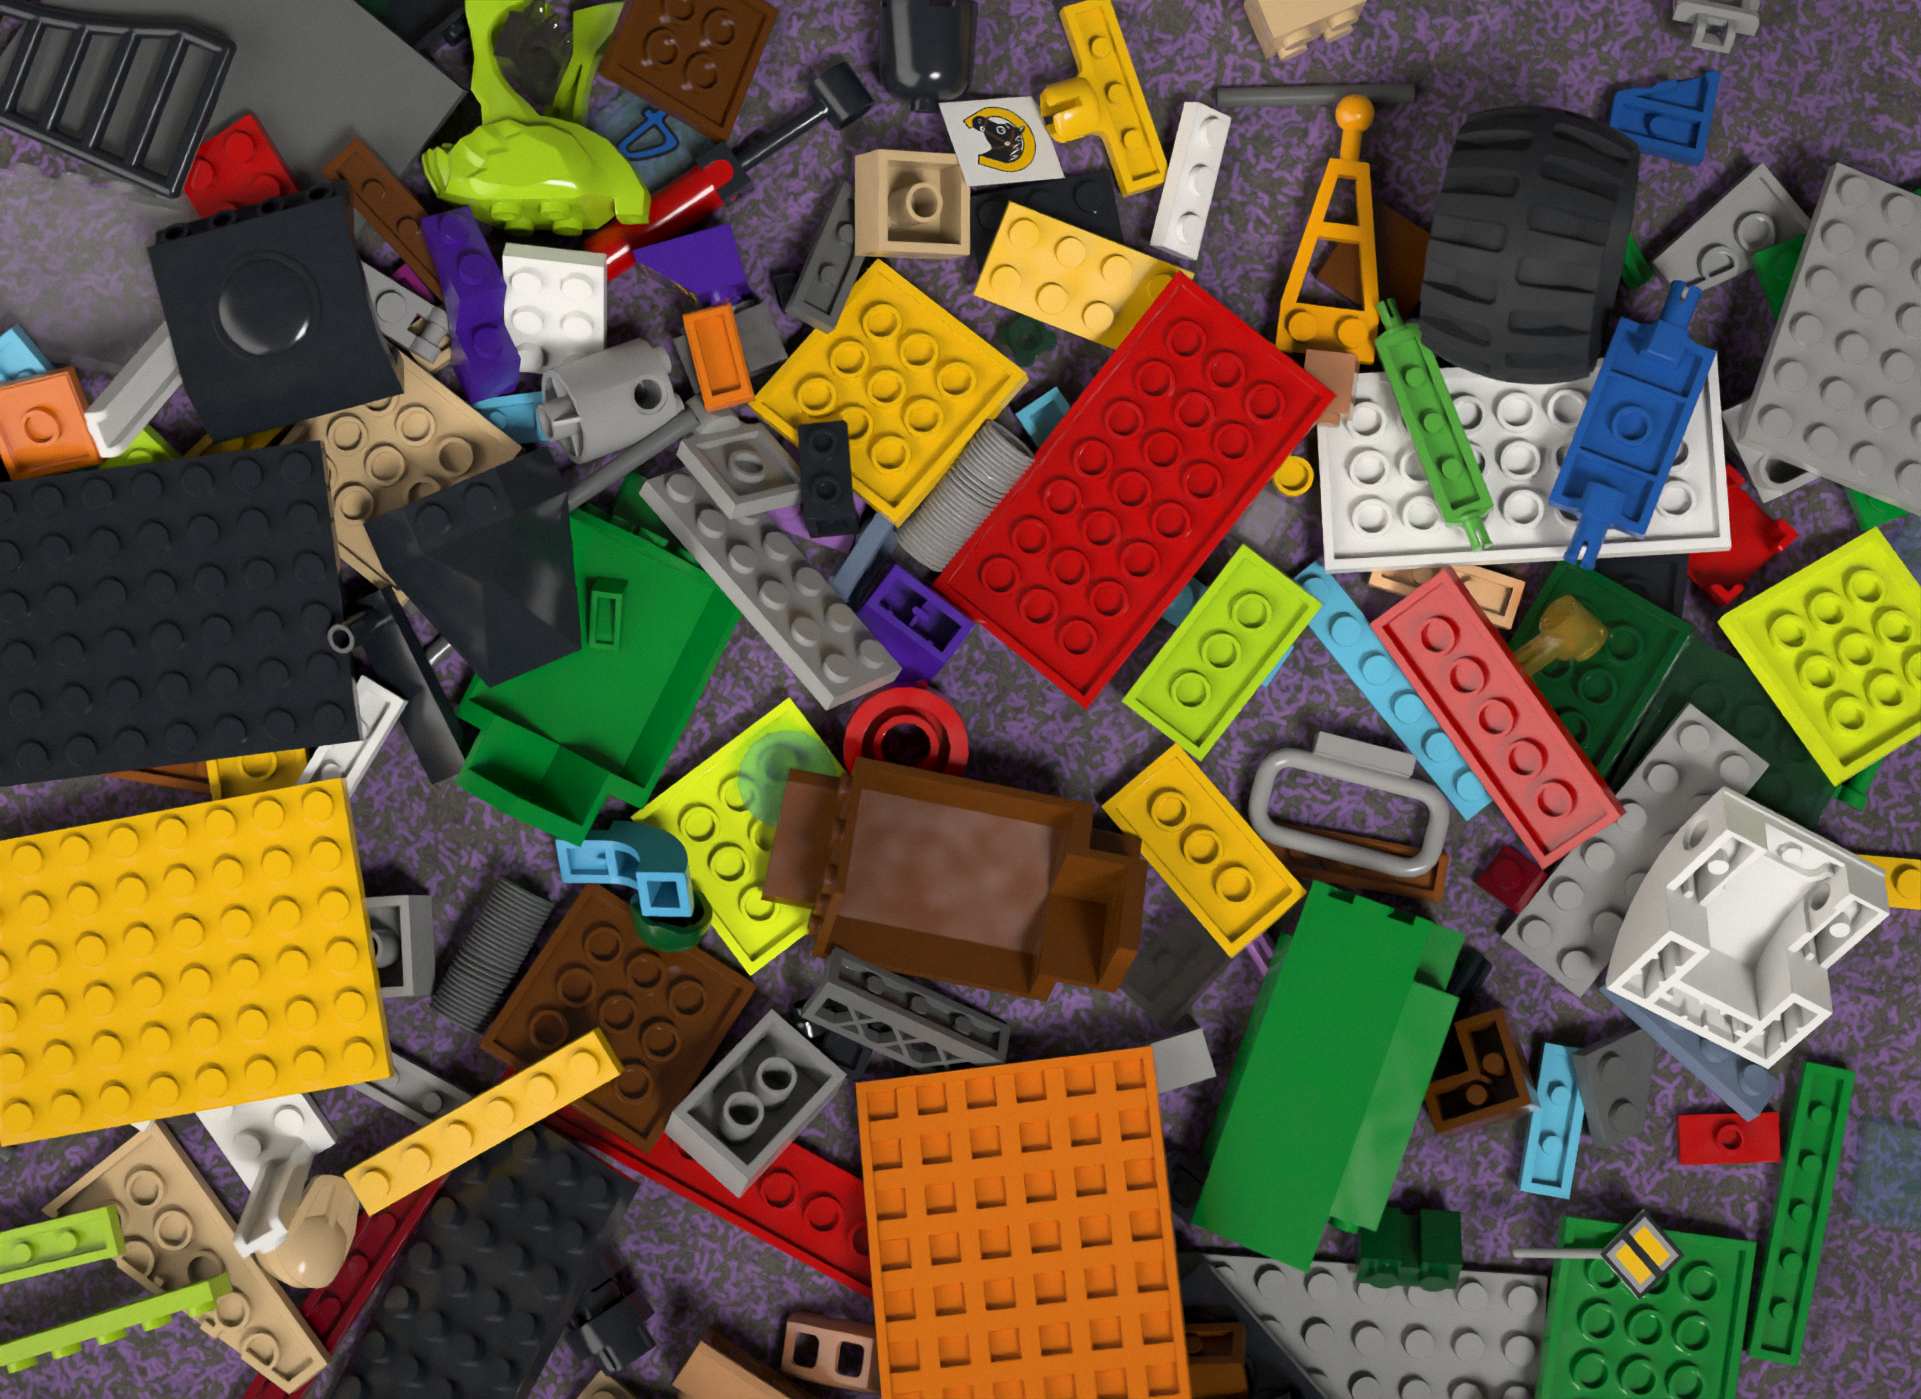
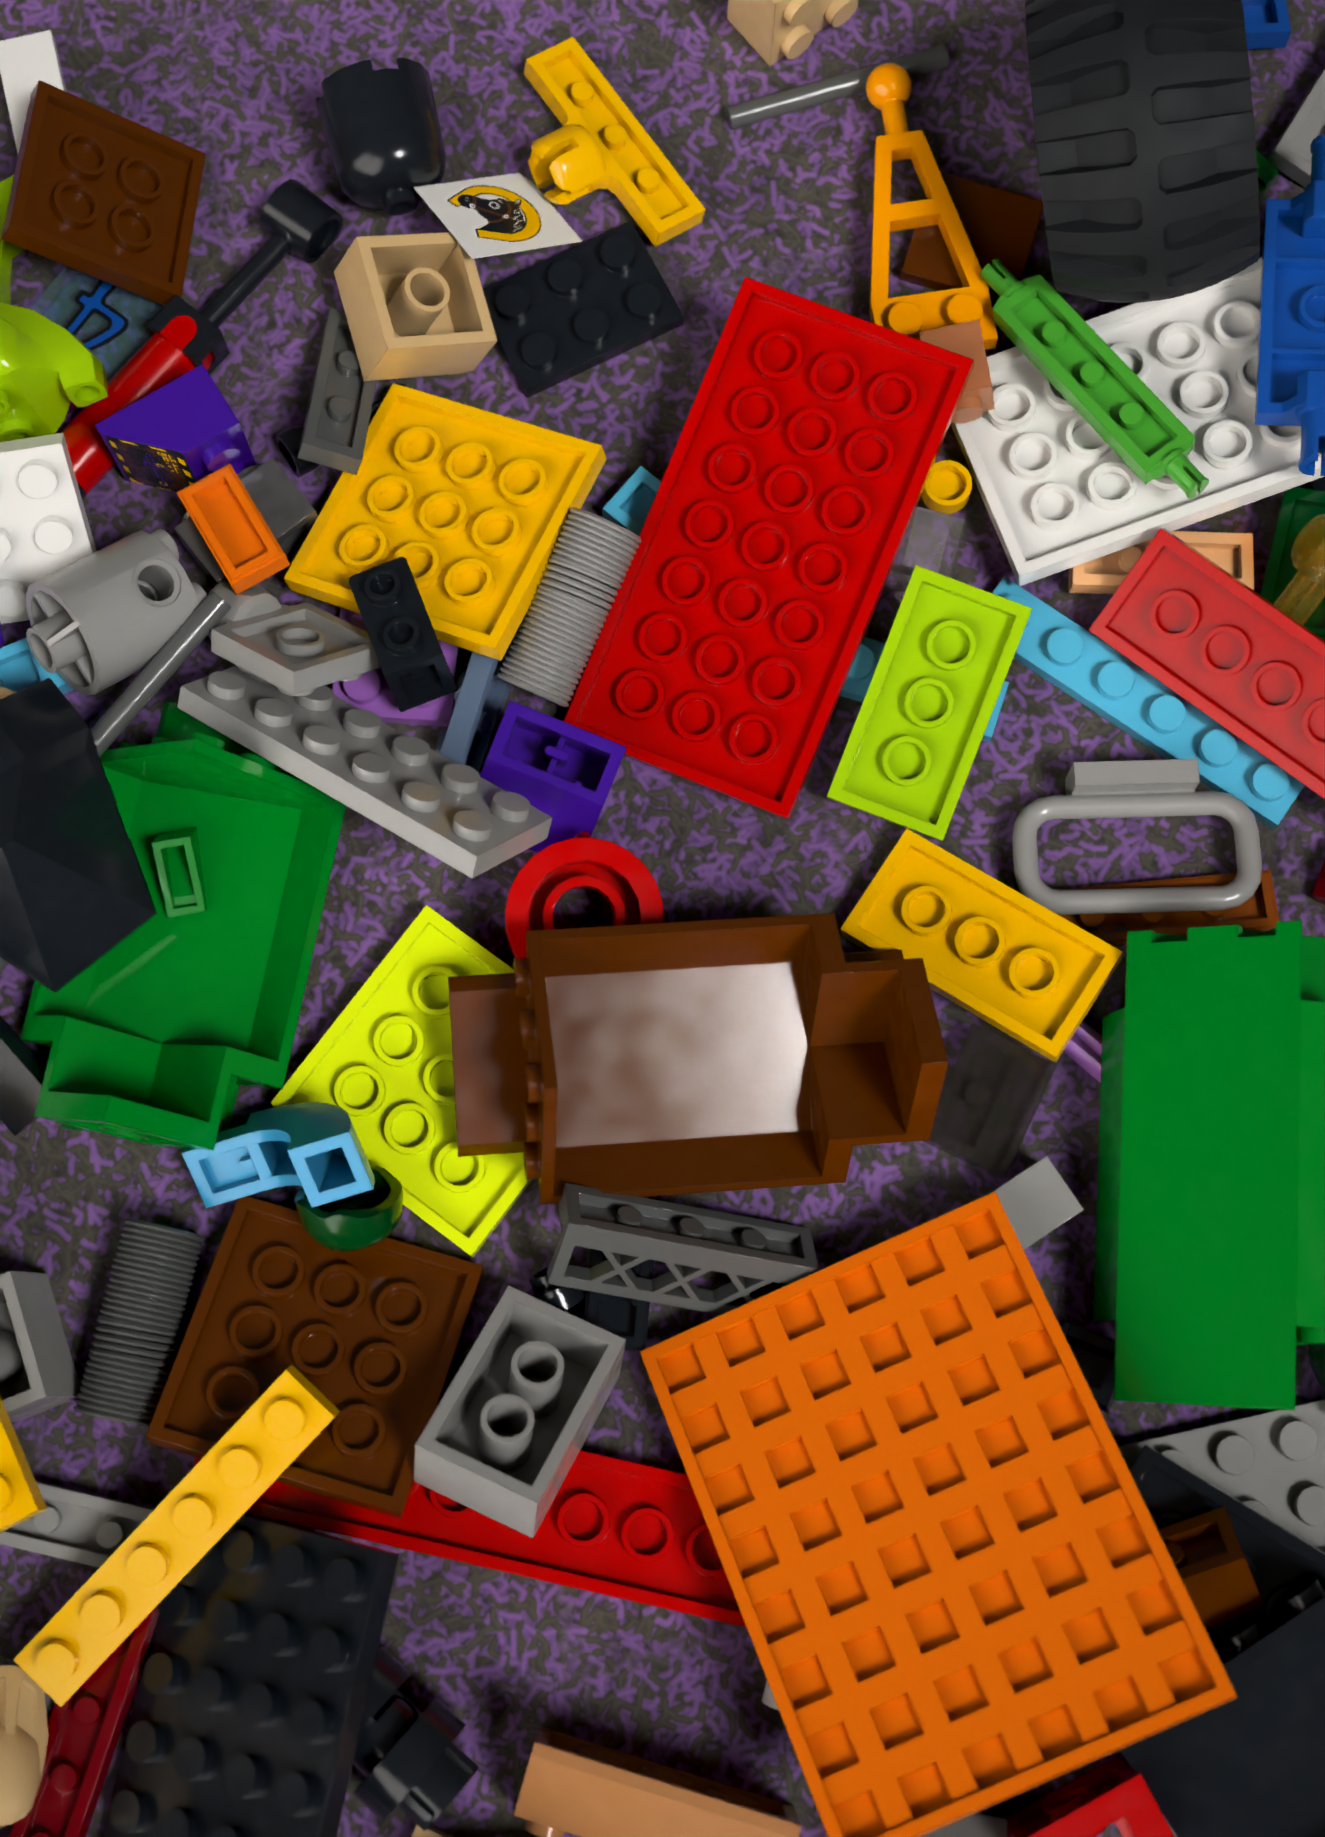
camera: 20 degrees left, 10 degrees down
(767, 766) = (421, 993): clear light blue tile -> none
(831, 1335) = (701, 1686): nougat piece -> none
(1025, 352) = (595, 410): clear green plate -> none
(1070, 276) = (617, 338): yellow plate -> none
(1190, 180) = (725, 204): white plate -> none

